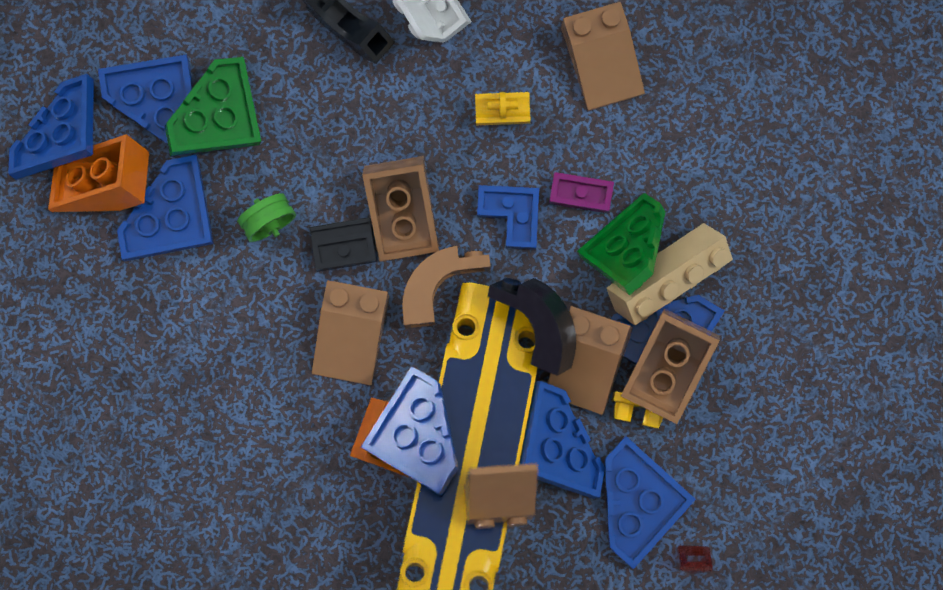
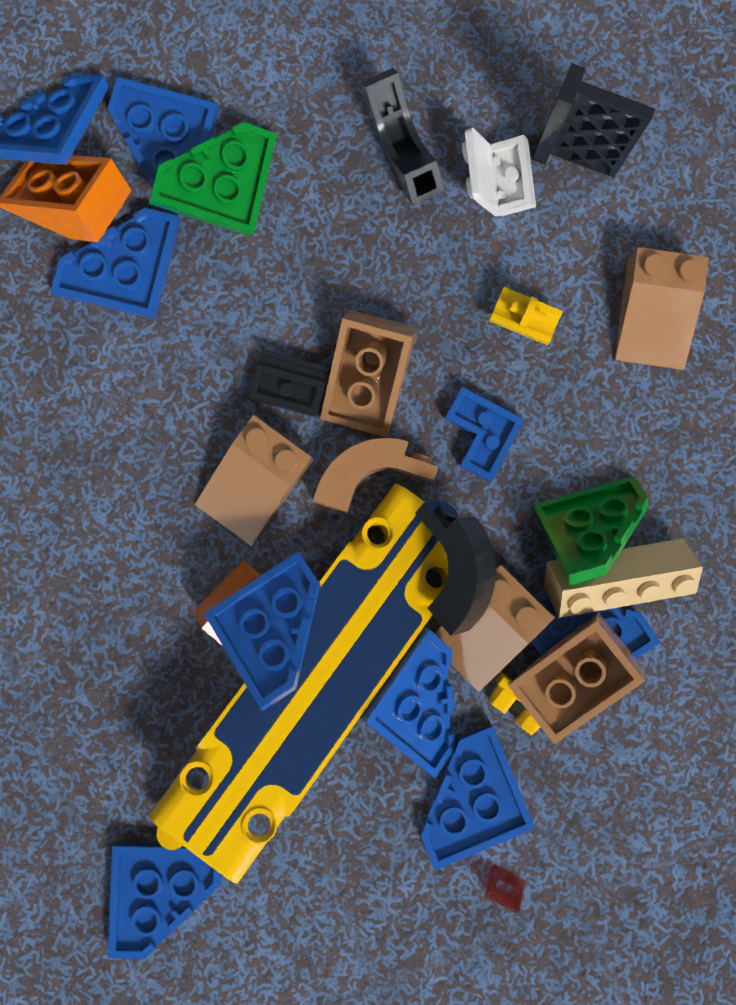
camera: 20 degrees right, 5 degrees up
(266, 217) = (217, 315): bright green wheel -> none
(501, 495) = (327, 747): medium nougat slope -> none
(581, 192) = (567, 445): magenta plate -> none

